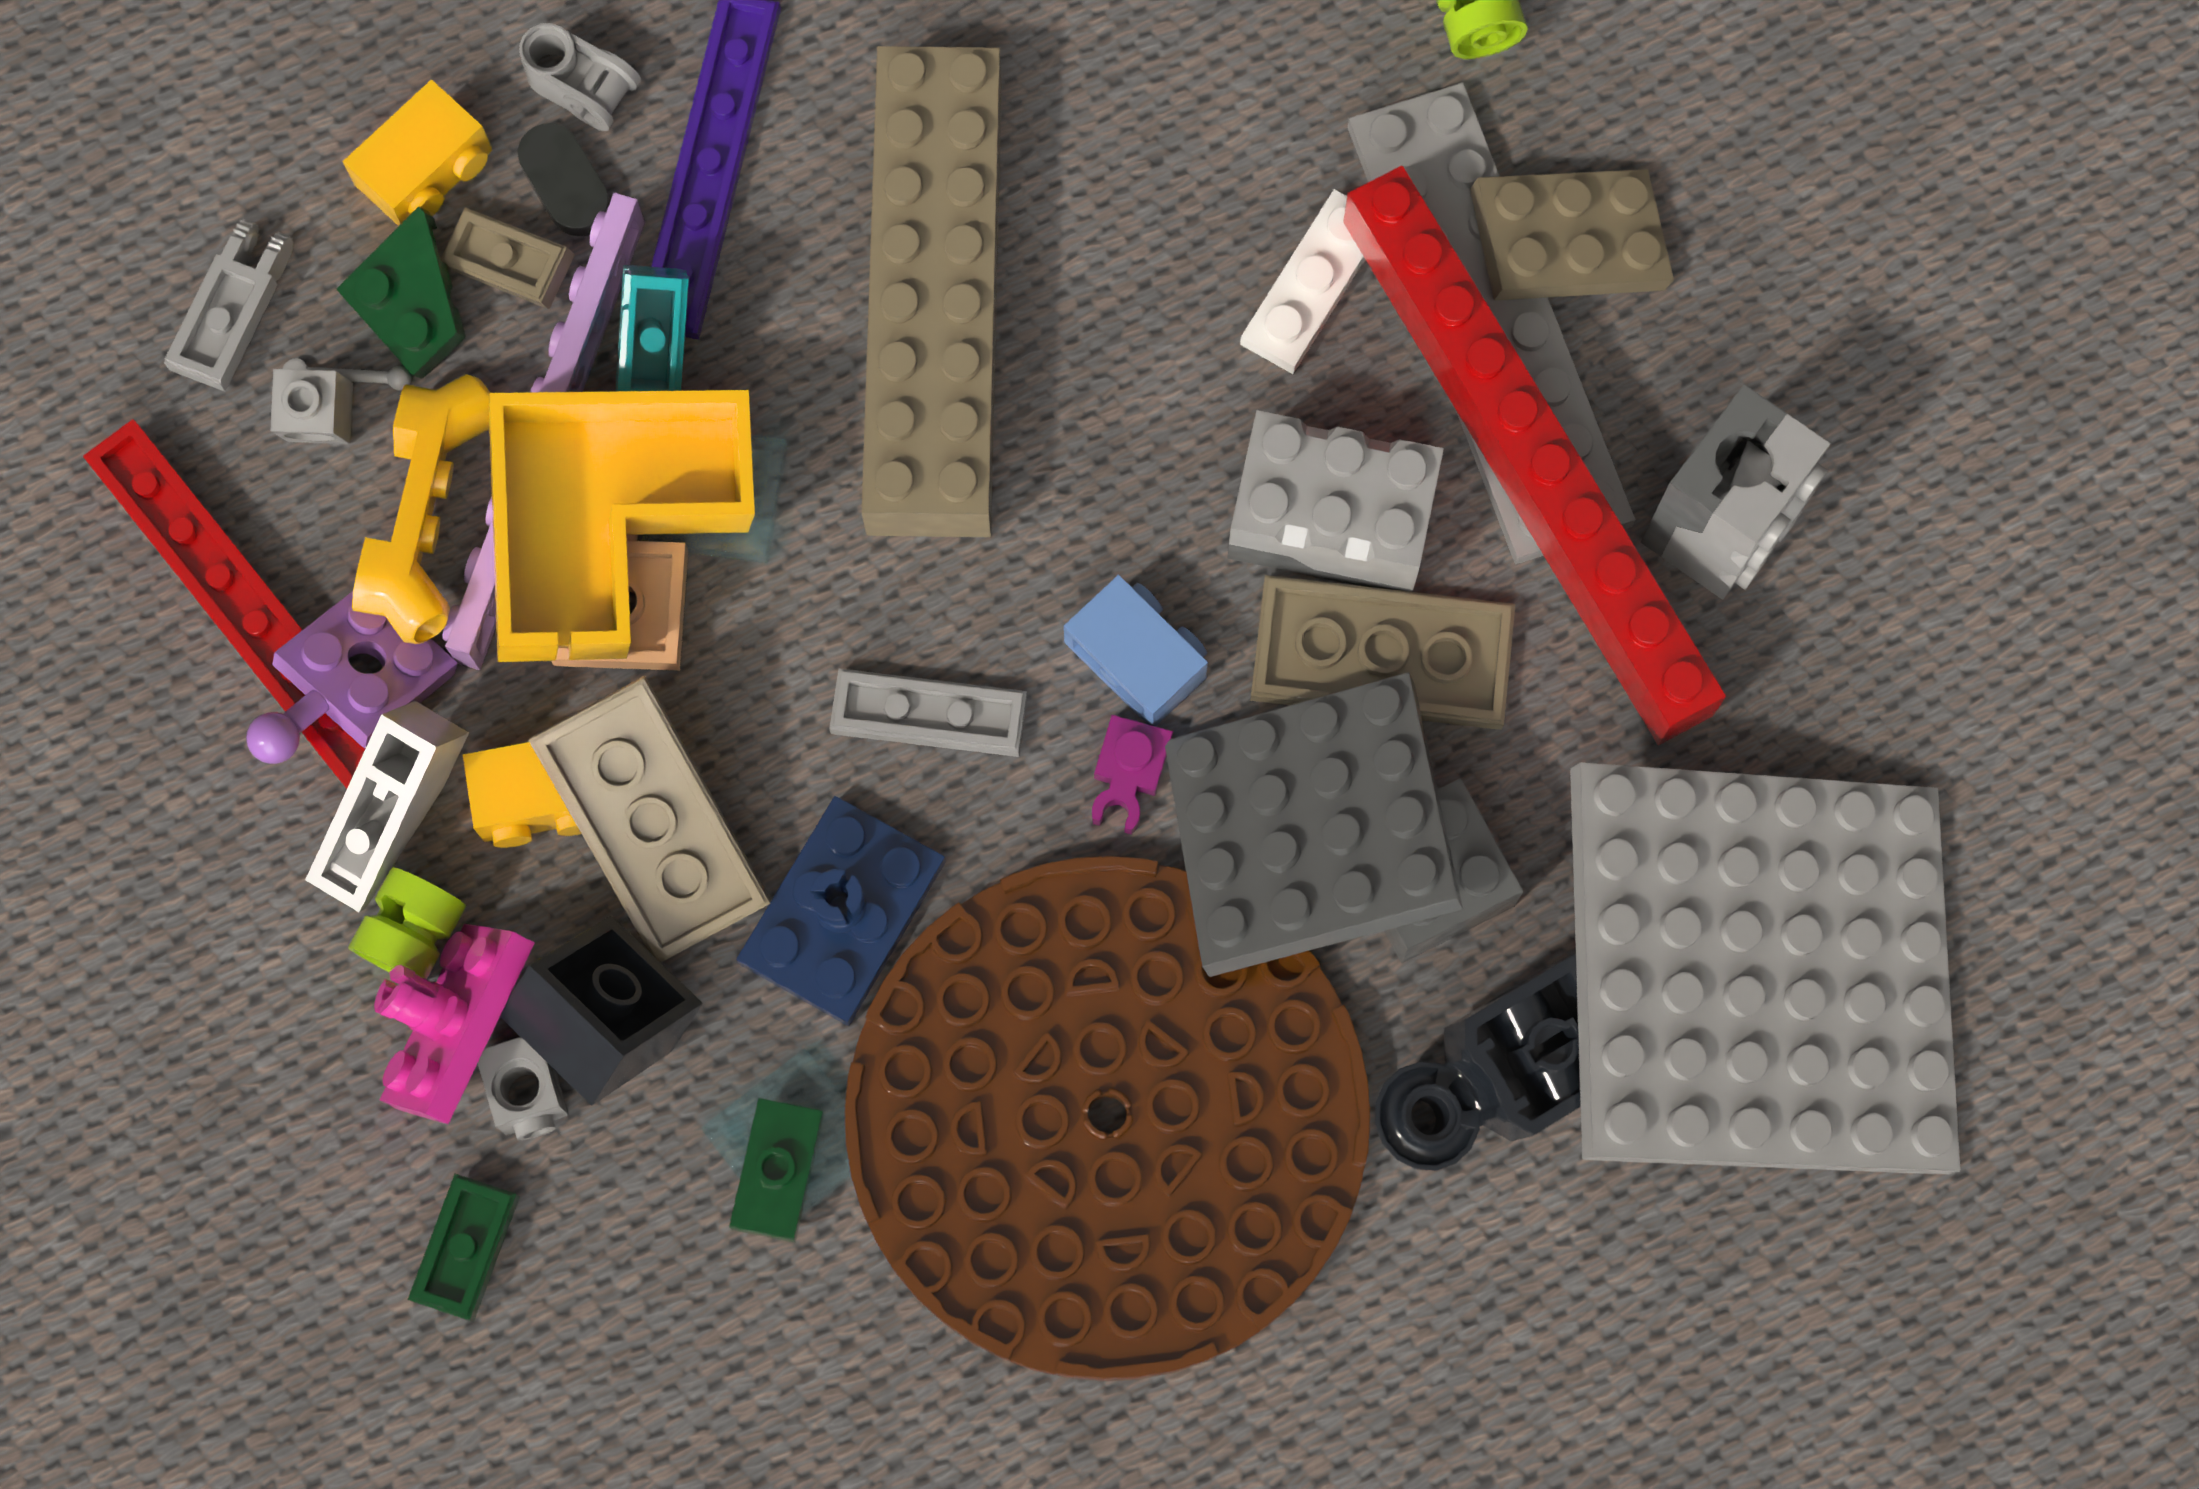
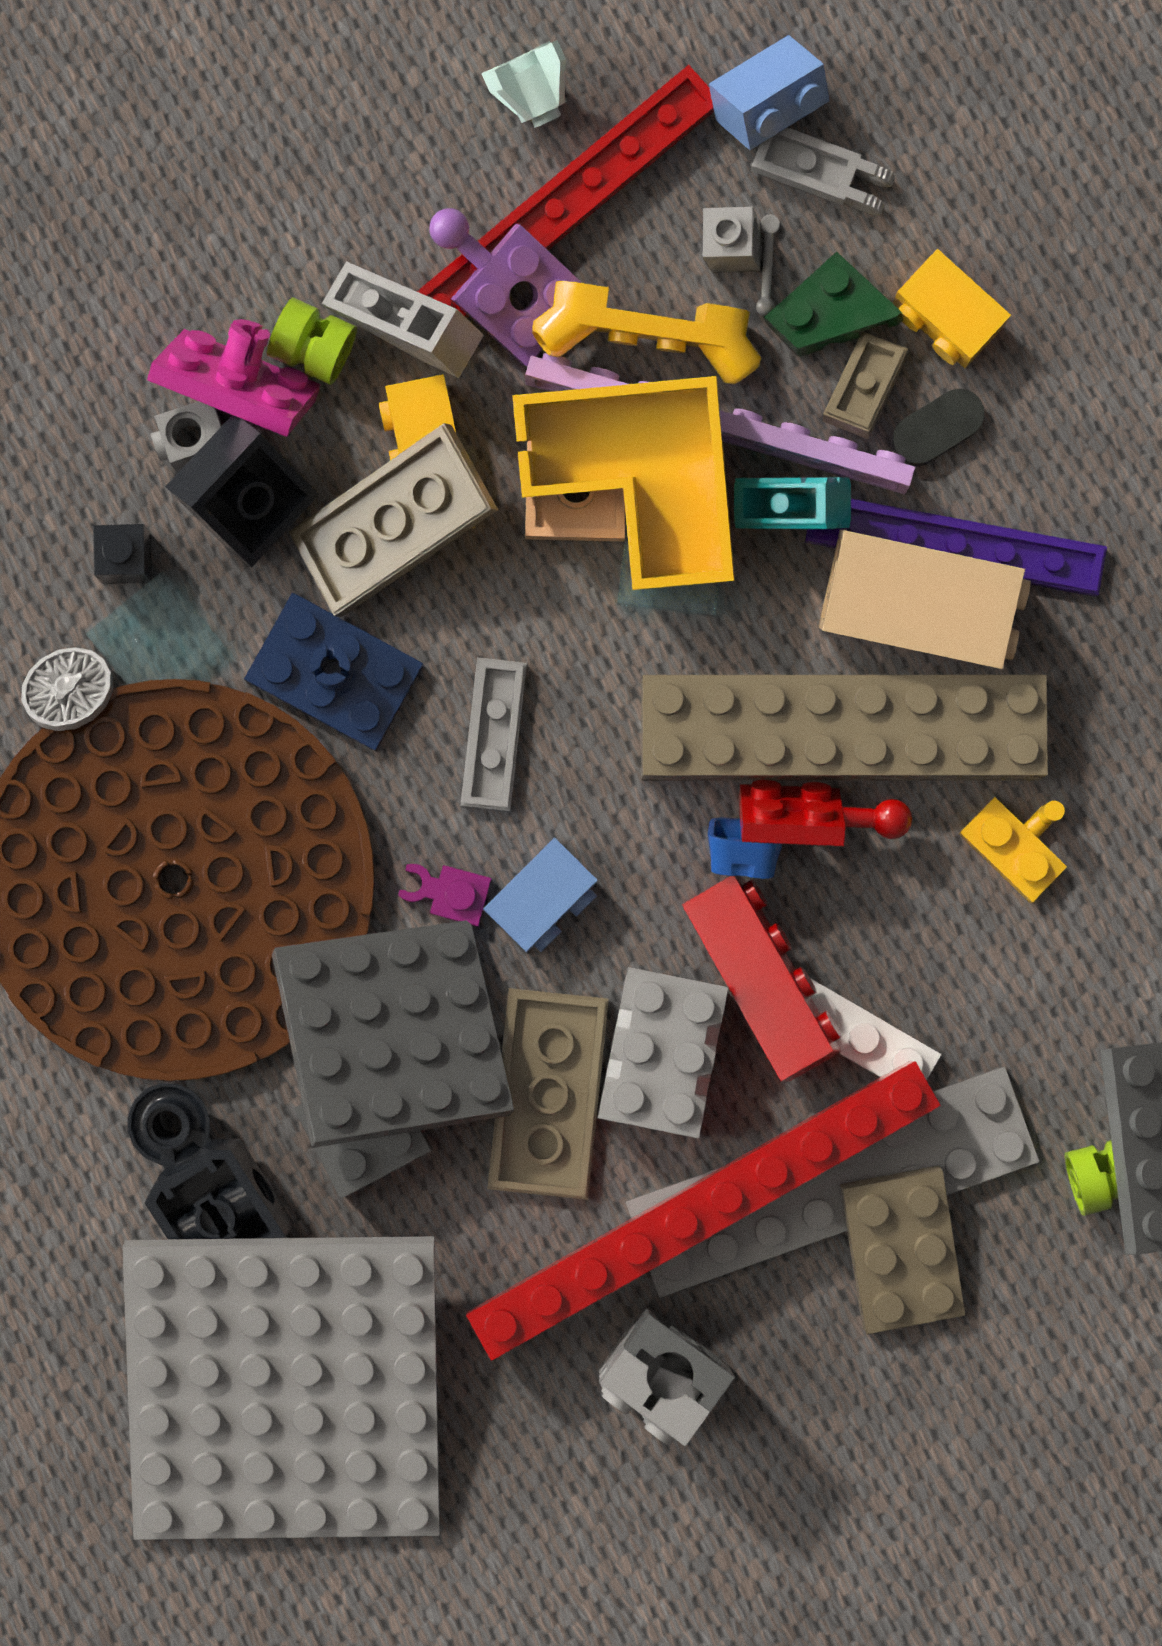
camera: 85 degrees right, 10 degrees up
(89, 647) = (531, 83): none -> light aqua brick
(128, 355) = (769, 92): none -> medium blue brick
(464, 1247) = (71, 398): dark green plate -> none
(586, 80) = (1022, 440): light grey piece -> none
(676, 1175) = (122, 553): none -> black brick
(776, 1170) = (127, 629): dark green plate -> none
(777, 184) = (923, 599): none -> tan brick
(853, 1251) = (67, 689): none -> light grey wheel
(1041, 323) = (812, 815): none -> red plate
(1079, 401) = (739, 858): none -> blue piece
(1080, 105) = (1015, 846): none -> yellow plate
(1259, 372) = (762, 977): none -> brick

